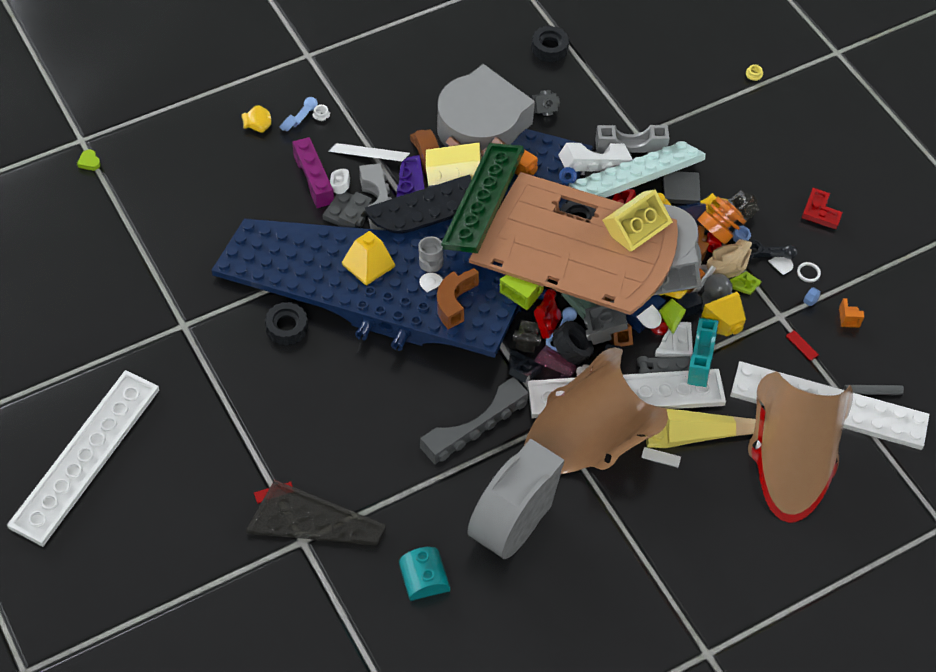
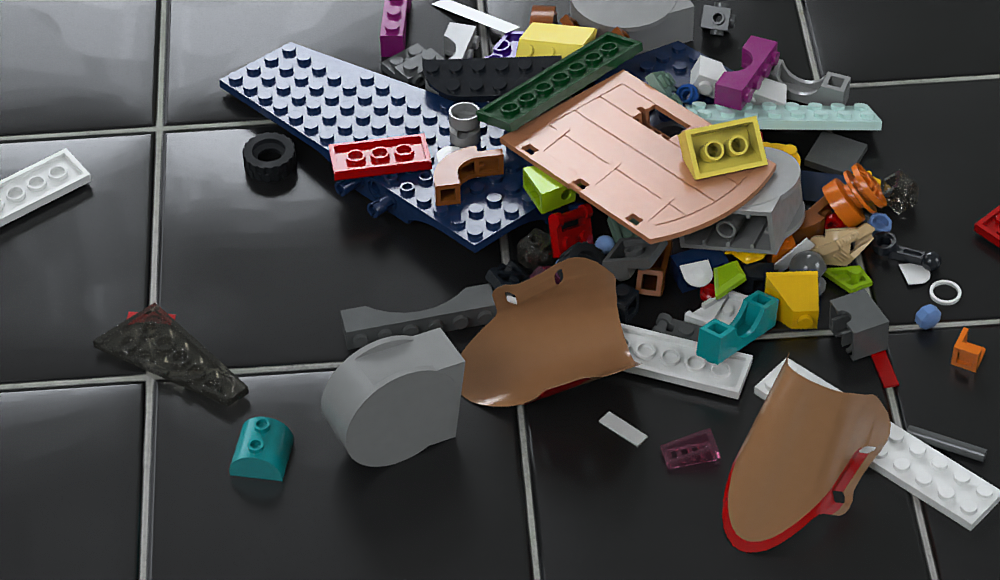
camera: 30 degrees right, 10 degrees down
(340, 181) = (419, 33): white plate -> none
(368, 258) = (393, 111): yellow slope -> none
(381, 301) = (380, 156): none -> red tile
(527, 164) = (642, 65): orange brick -> none
(551, 174) = (664, 83): none -> sand green plate
(603, 161) = (737, 87): none -> magenta arch
(694, 427) = (666, 403): light yellow plate -> none
(727, 446) = (697, 440): none -> clear pink slope
(775, 317) = (859, 324): none -> dark grey piece

